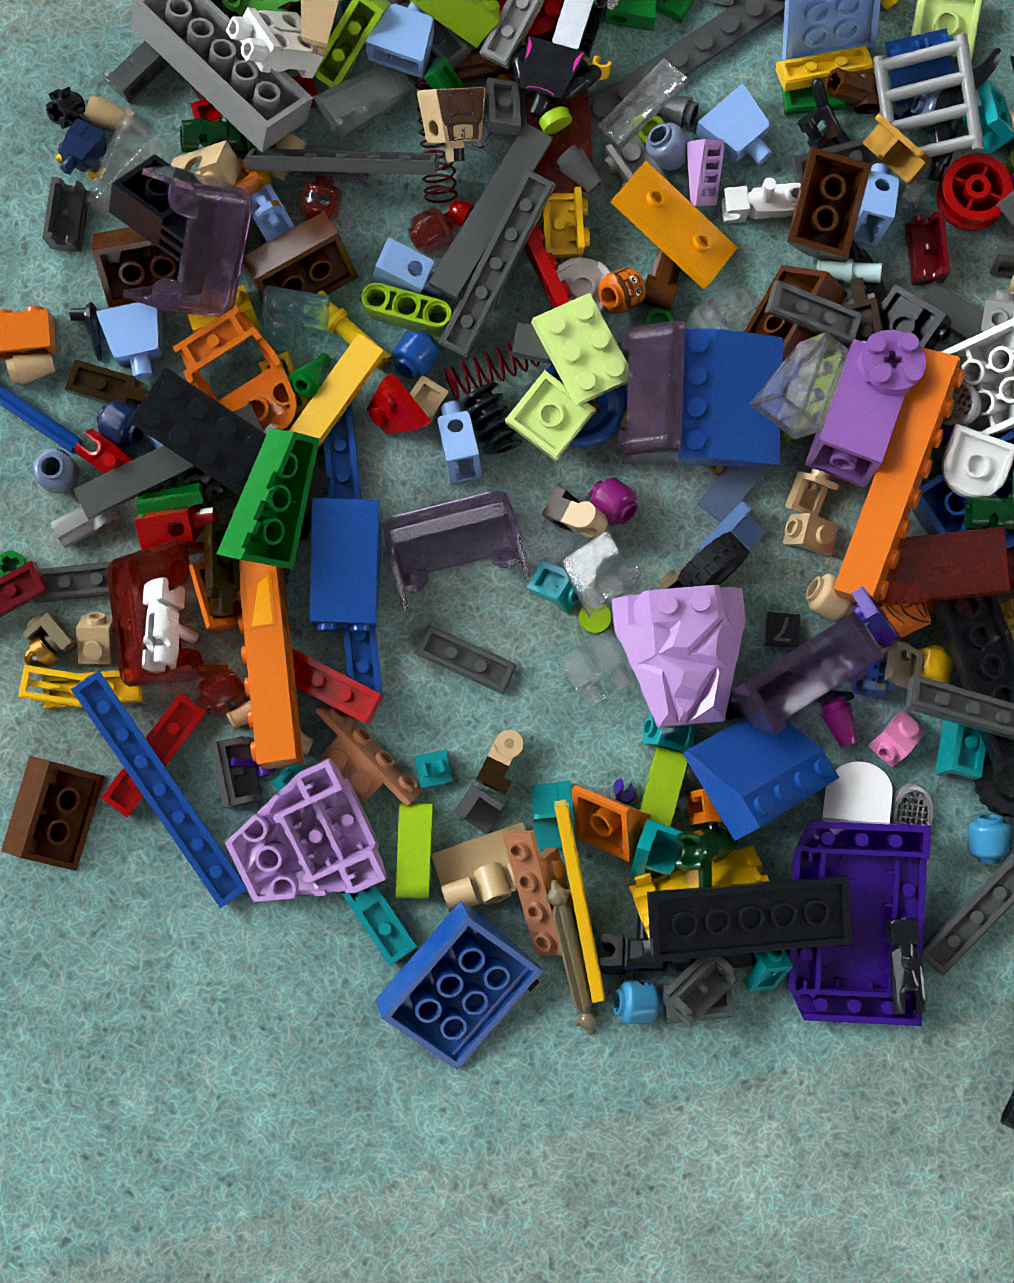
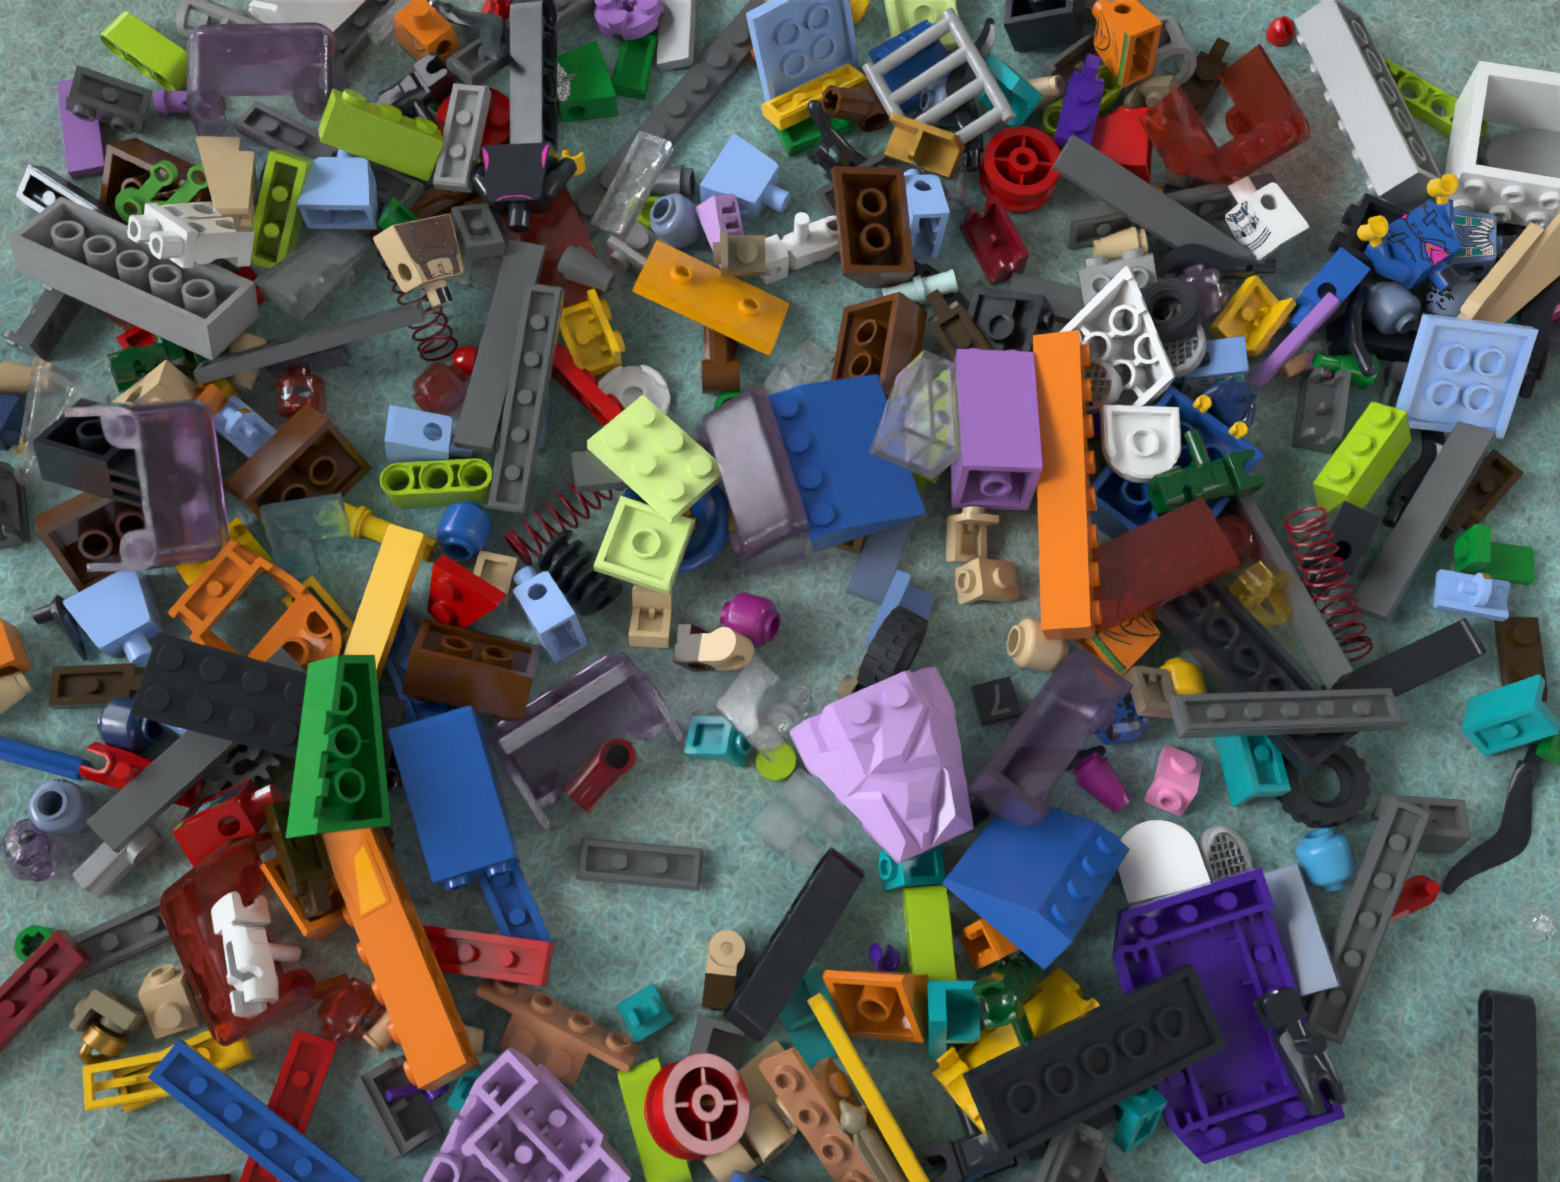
camera: 25 degrees left, 10 degrees down
(25, 496) = (31, 852): none -> clear purple head
(170, 498) = (213, 792): green tile -> none
(307, 378) = (344, 596): green cone -> none
(387, 469) = (471, 669): none -> reddish brown slope
(449, 847) = (696, 1107): none -> red wheel
(455, 582) = (598, 777): none -> dark red piece
(535, 474) = (650, 618): none -> tan bracket
(555, 120) = (541, 226): lime tile -> none
(560, 758) = (794, 945): none -> black beam
(622, 290) = (678, 385): orange head -> none
(709, 196) = (740, 254): none -> dark tan bracket
(813, 312) = (898, 337): dark grey tile -> none
(874, 617) = (1102, 644): dark purple hinge -> none
(894, 344) = (1013, 340): medium lavender plate -> none
(945, 882) = (1301, 932): none -> sand blue tile

